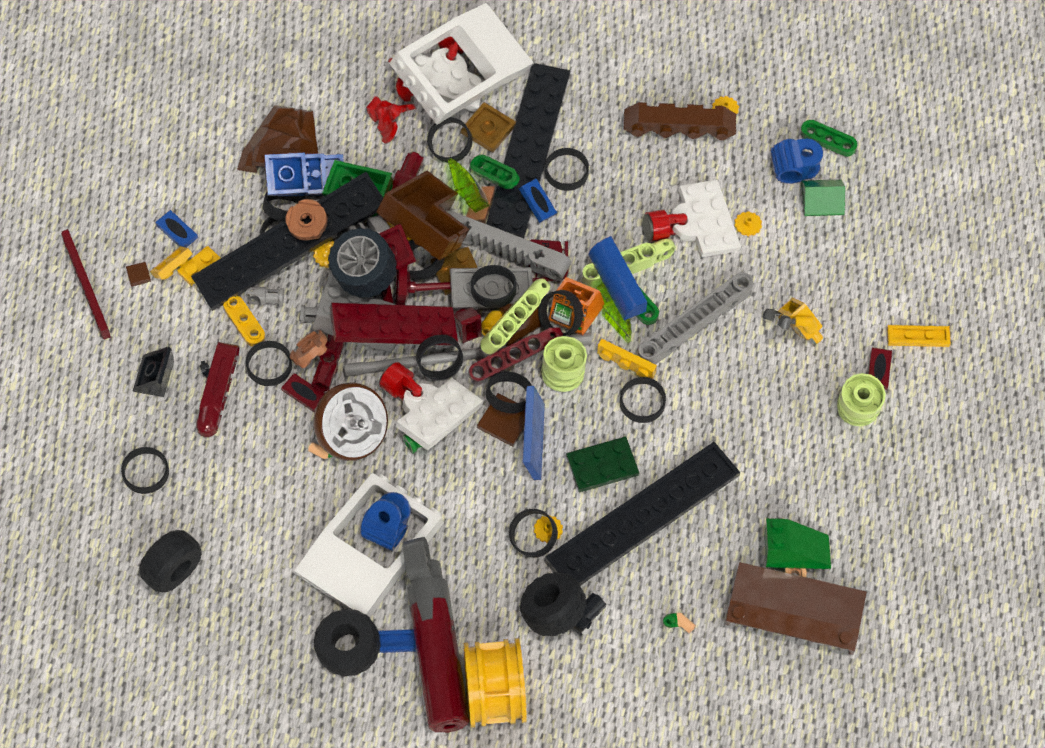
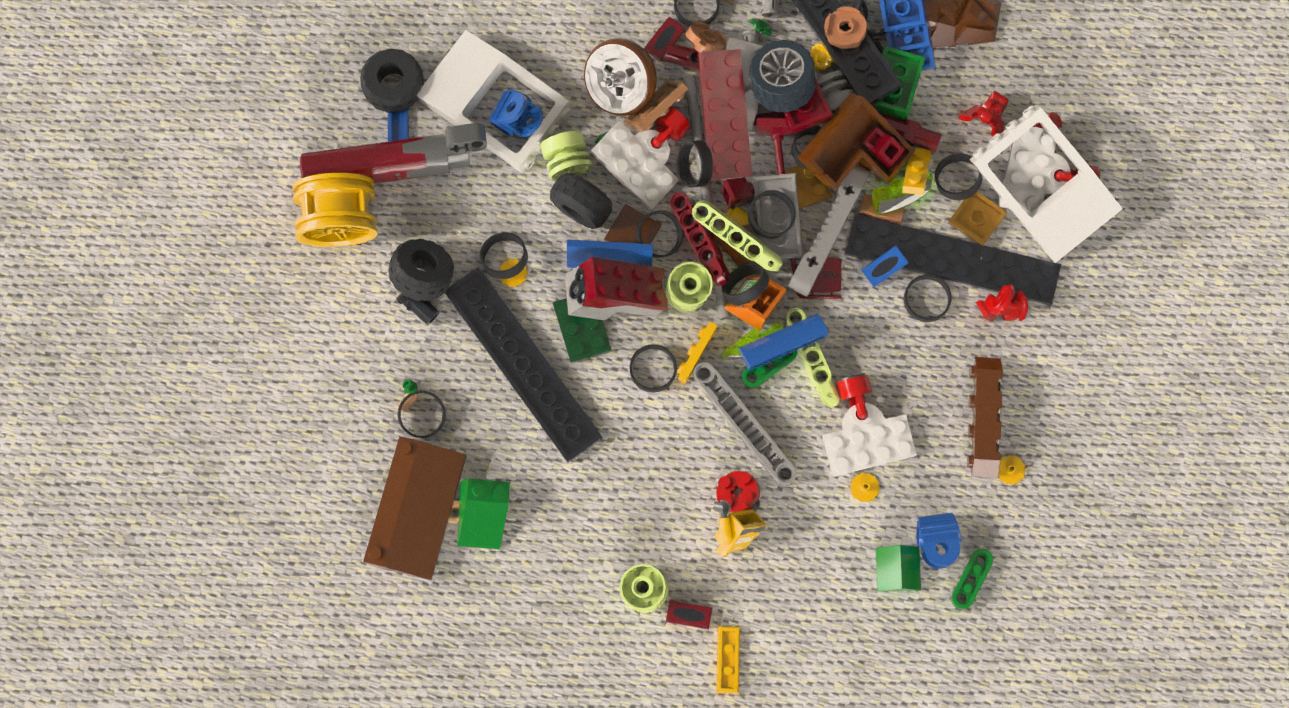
camera: 90 degrees right, 15 degrees up
(295, 304) = (760, 25): none -> green plant
(390, 393) = (663, 98): none -> medium nougat plate
(426, 192) = (882, 147): none -> dark red brick
(429, 473) = (566, 154): none -> yellowish green wheel
(450, 168) = (917, 172): none -> yellow plate
(479, 456) = (581, 200): none -> black tyre
(505, 176) = (909, 230): green plate -> none
(571, 424) = (611, 286): none -> dark red piece
(574, 101) = (1004, 305): none -> red animal
(688, 621) = (443, 414): none -> black tyre
(755, 334) = (743, 481): none -> red plate

